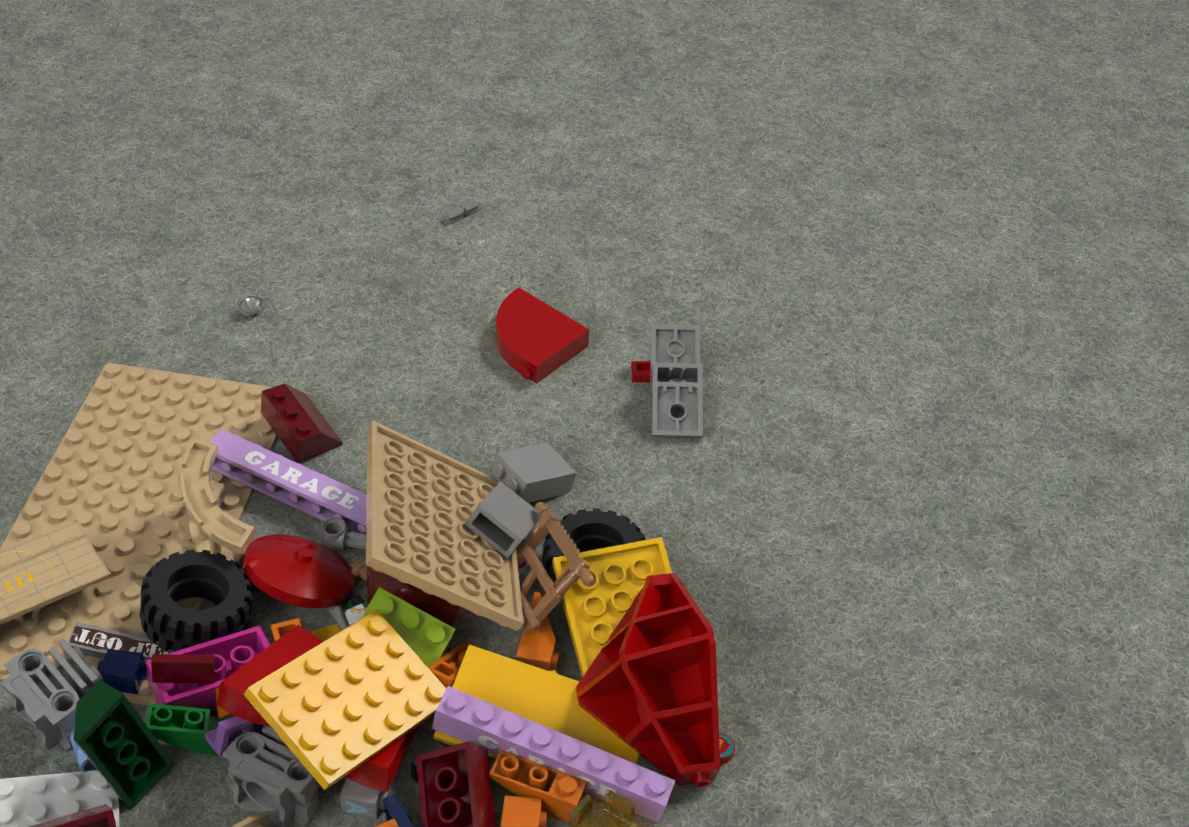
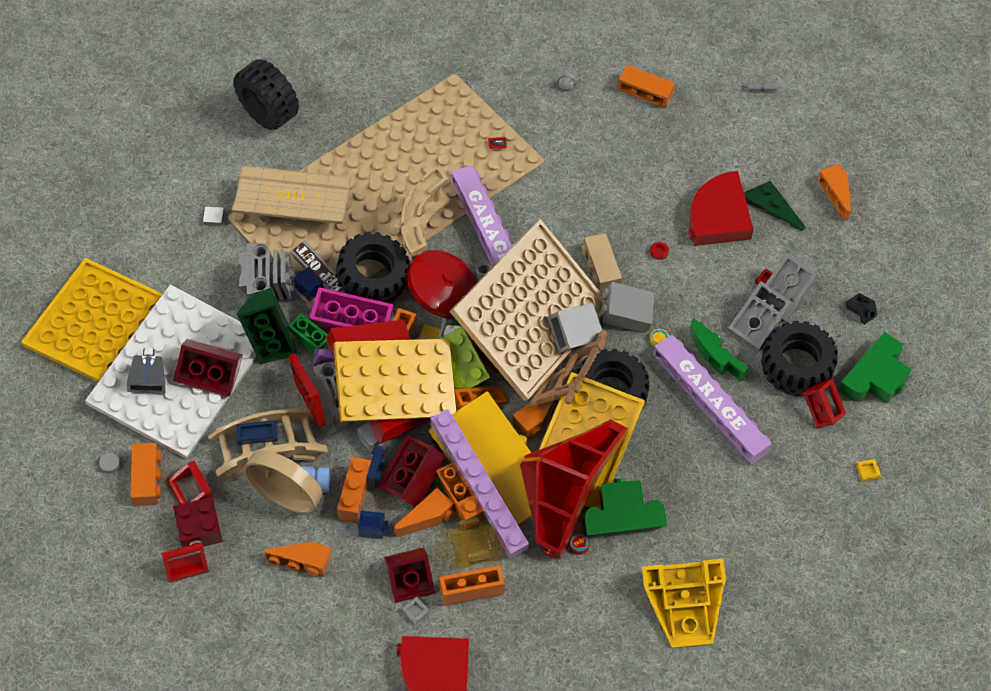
camera: 40 degrees right, 15 degrees up
(183, 668) = (329, 305): dark red tile -> none
(224, 401) = (497, 143): none -> sticker
(239, 787) = (307, 390): none -> red tile
(297, 422) = (526, 185): dark red slope -> none
(343, 266) = (646, 86): none -> orange brick
(459, 444) = (601, 261): none -> tan brick
(506, 406) = (659, 250): none -> red tile
(579, 302) = (769, 199): none -> dark green wing
(591, 487) = (657, 336): none -> yellow tile
(628, 255) = (836, 186): none -> orange slope
(655, 463) = (711, 349): none -> green slope
(707, 509) = (712, 399): none -> lavender brick
(746, 671) = (623, 510): none -> green brick
(754, 438) = (802, 337): none -> black tyre
(758, 340) = (862, 306): none -> black bracket
(822, 443) = (819, 404): none -> red tile
(836, 388) = (877, 372): none -> green brick
(895, 722) = (686, 599): none -> yellow wedge
(920, 482) = (868, 470): none -> yellow tile

